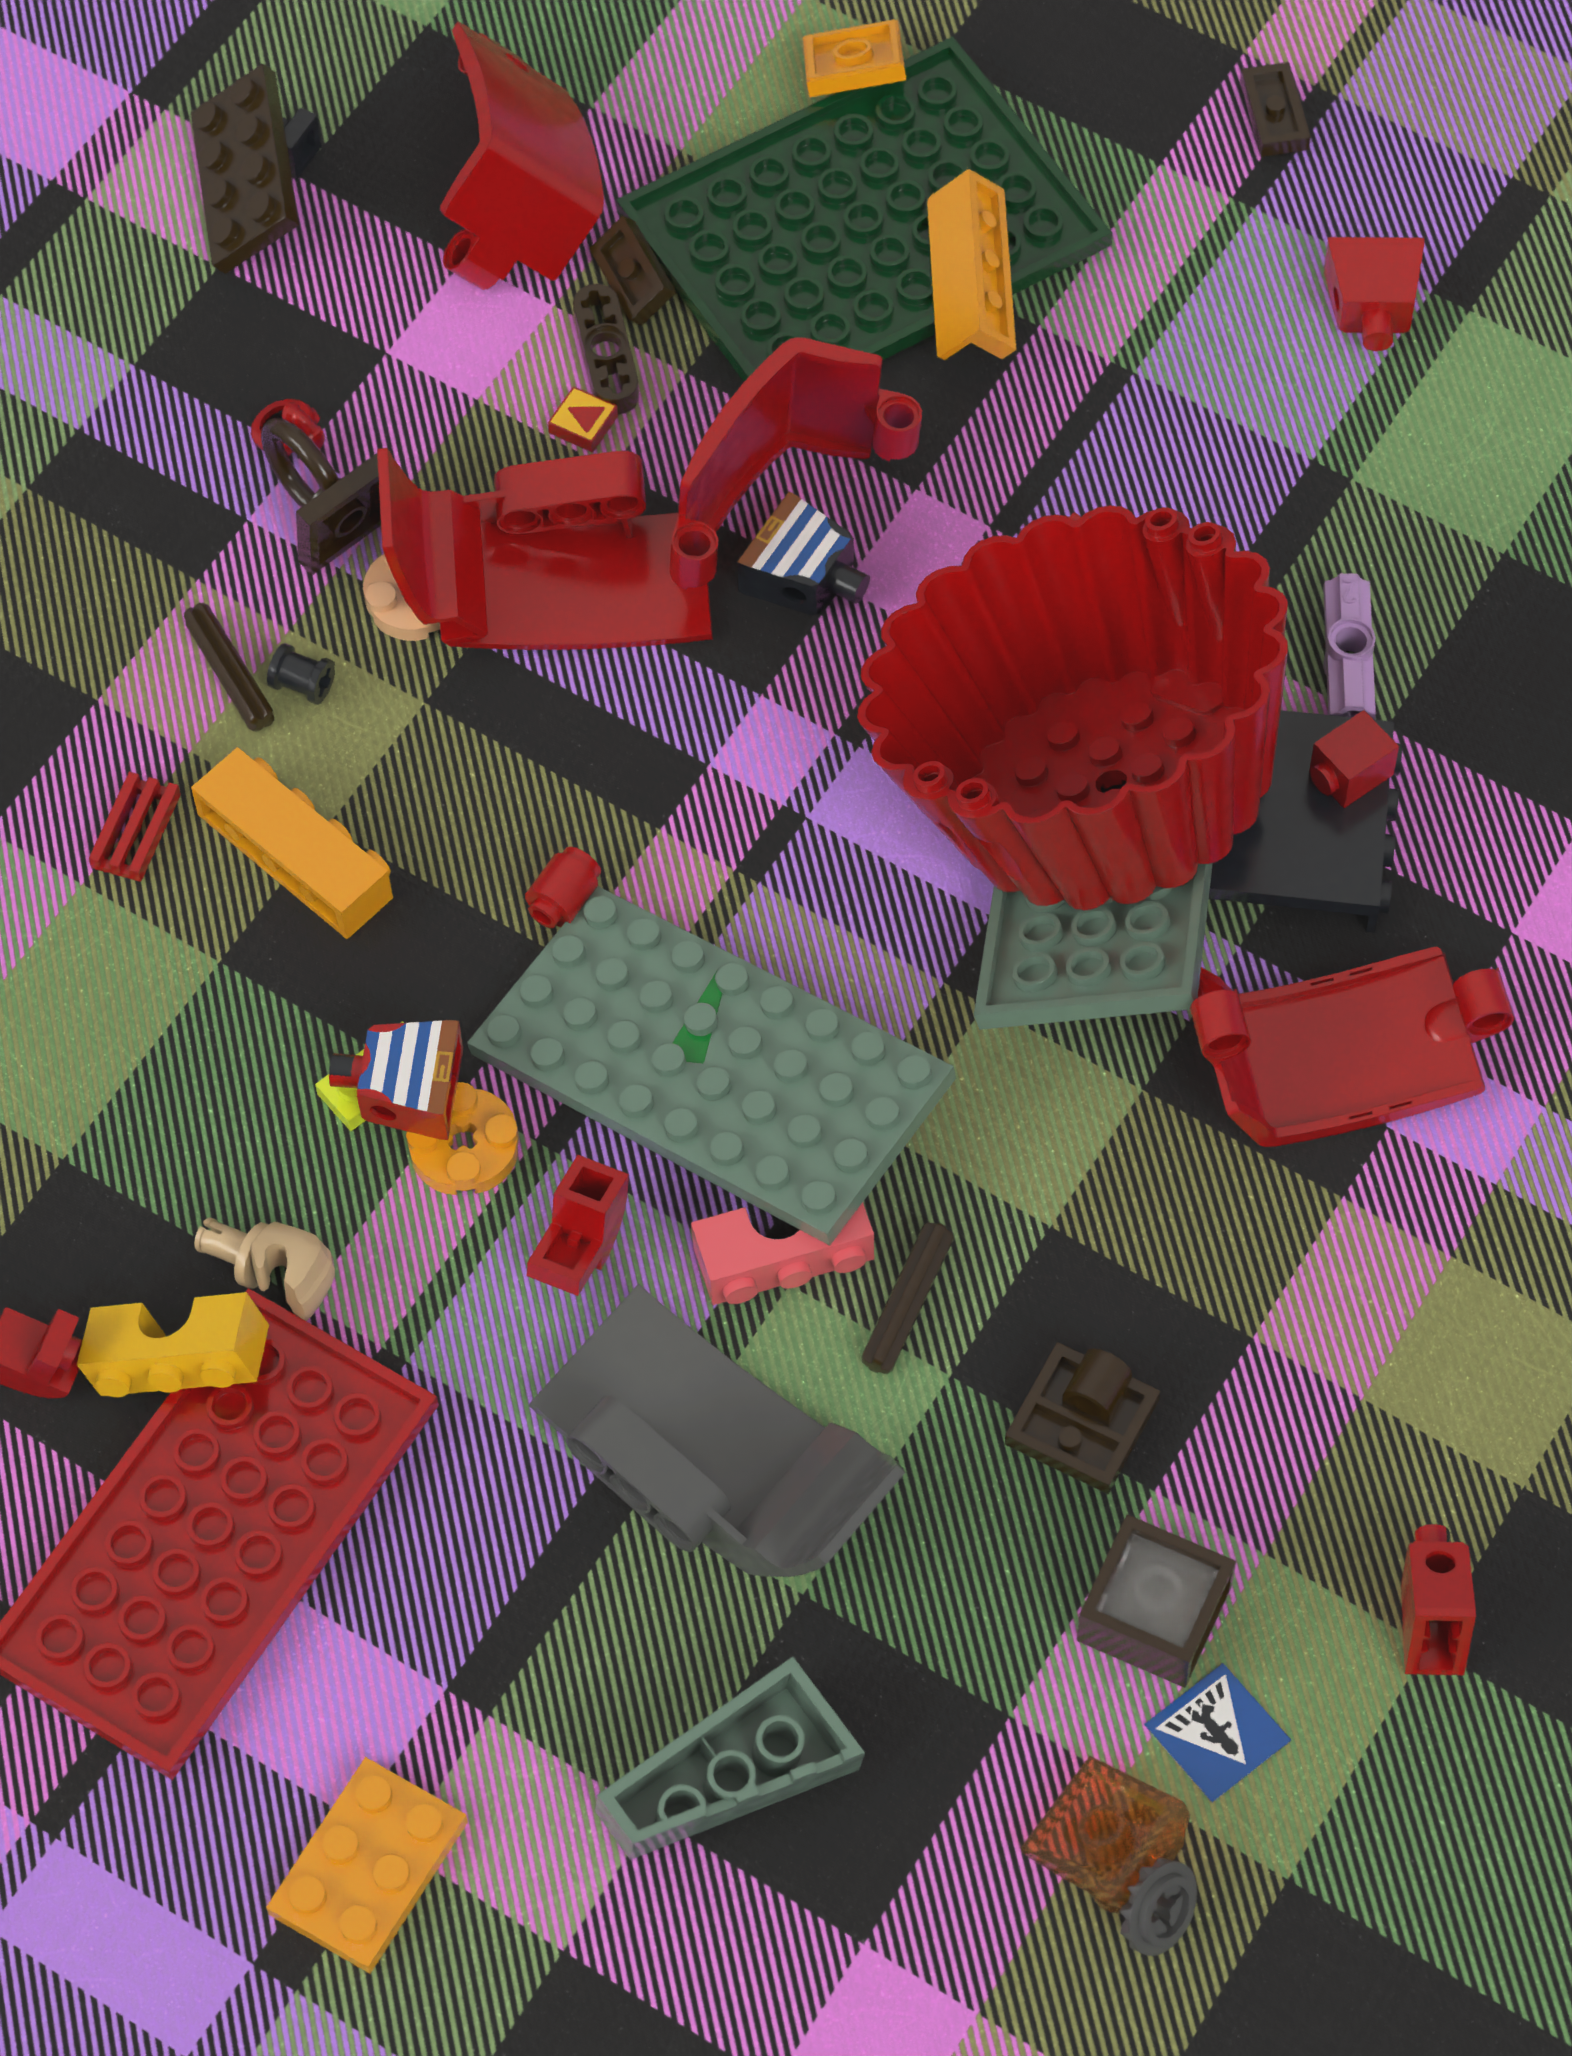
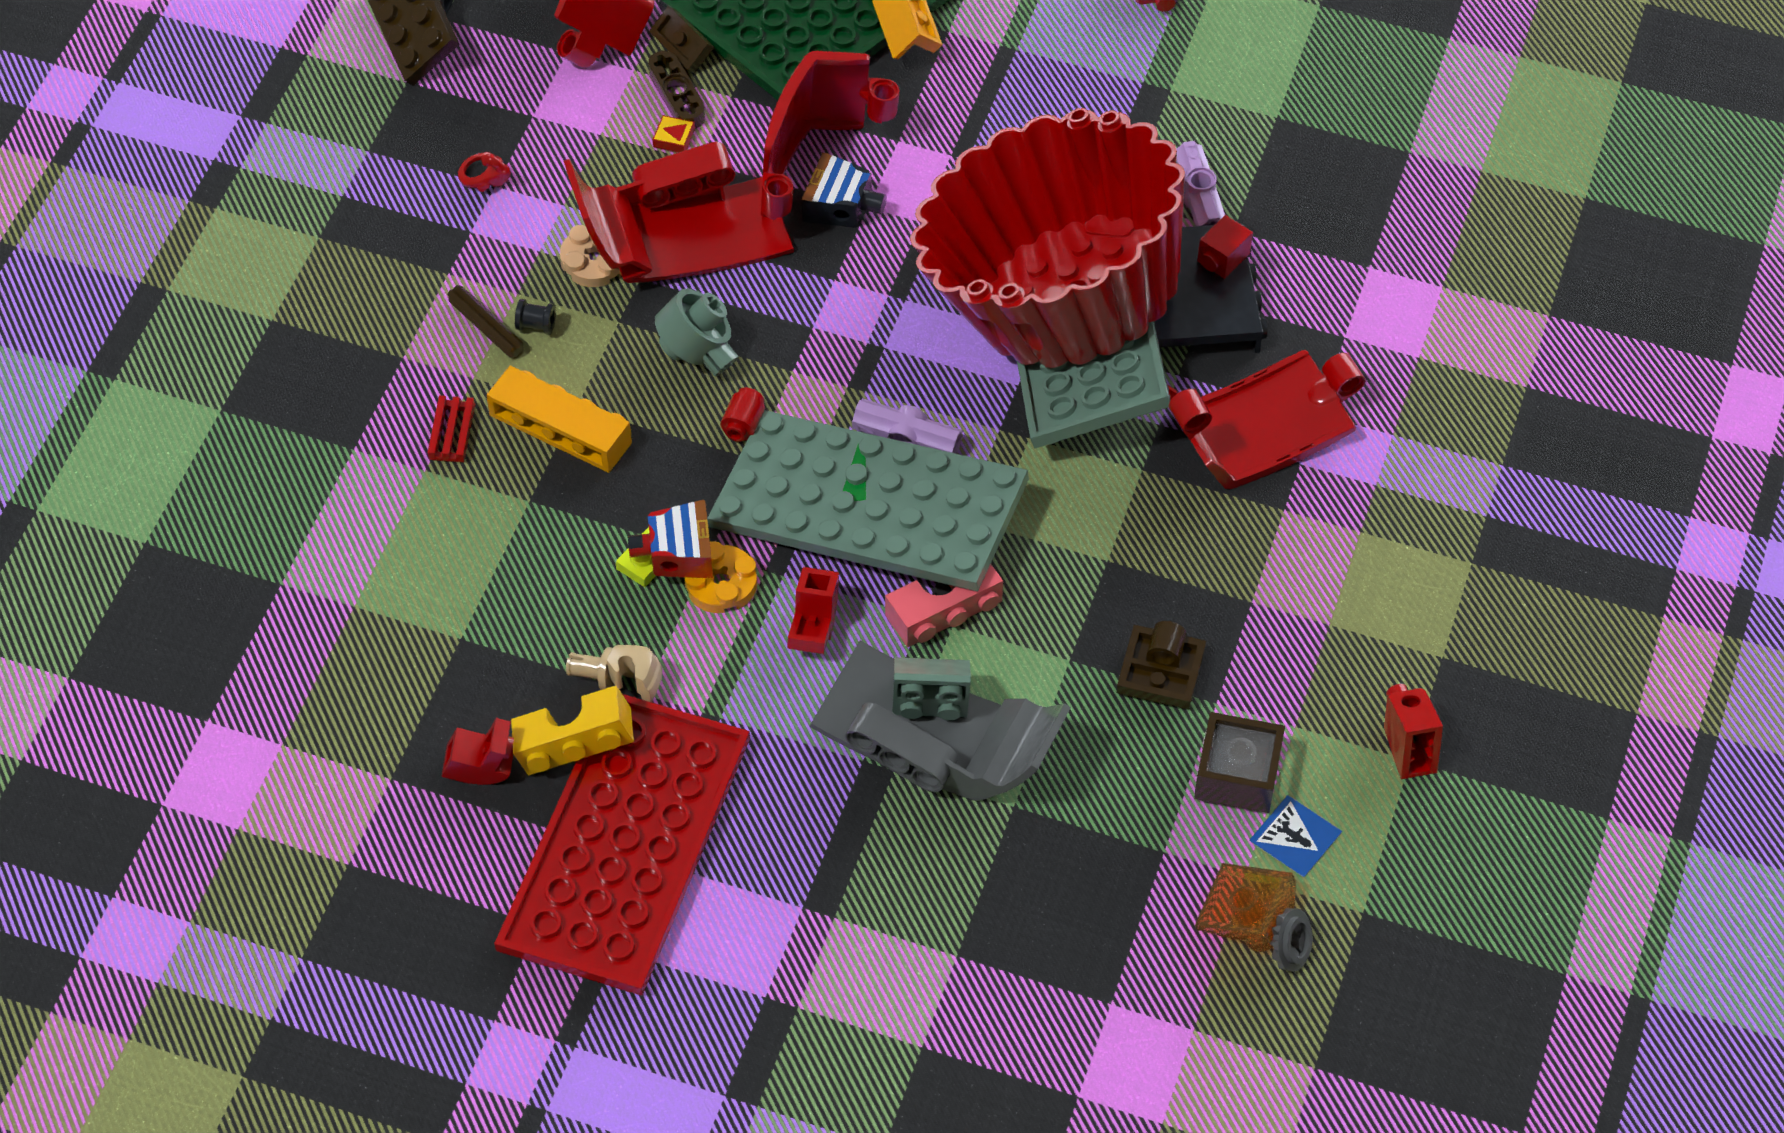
camera: 15 degrees left, 5 degrees down
(339, 511) = (535, 212): dark brown tile -> none
(367, 1865) = (783, 1020): light orange plate -> none
(524, 743) = (696, 330): none -> sand green piece
(719, 1384) = (931, 688): none -> sand green slope
(737, 1760) = (1004, 908): sand green wedge -> none
(801, 956) = (905, 425): none -> lavender piece
(907, 1298) = (1031, 618): dark brown axle -> none

